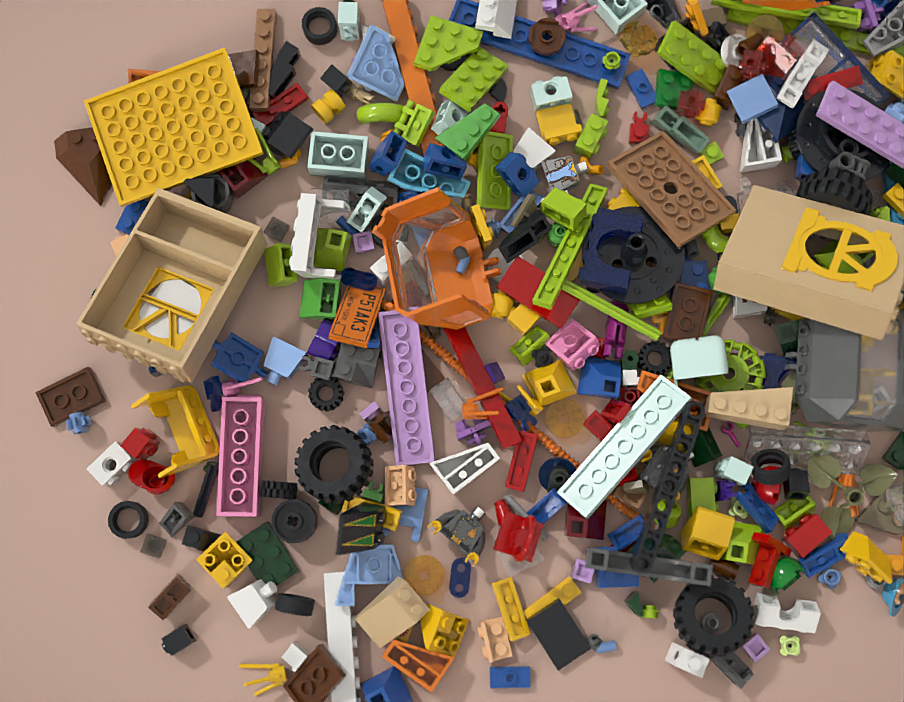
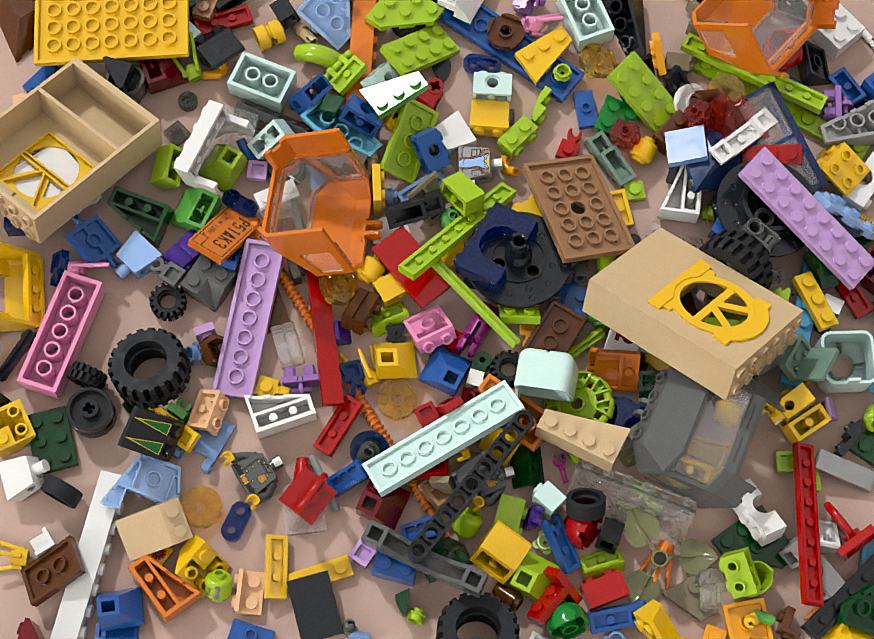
camera: 15 degrees right, 10 degrees down
(272, 317) = (142, 213): none -> dark green wedge
(274, 194) = (188, 101): none -> clear smoke tile
(412, 160) = (330, 105): none -> dark green slope
(445, 444) = (270, 387): none -> yellow plate
(463, 258) = (348, 213): arm -> none
(466, 643) = (218, 585): none -> lime head
(471, 410) = (303, 358): orange plant -> none
(478, 340) = (333, 294): none -> clear yellow plate
(505, 348) = (361, 311): none -> reddish brown brick
(533, 73) = (482, 63): none -> clear blue plate
(587, 46) = (542, 53): none -> yellow wing
(752, 328) = (616, 367): none -> orange piece

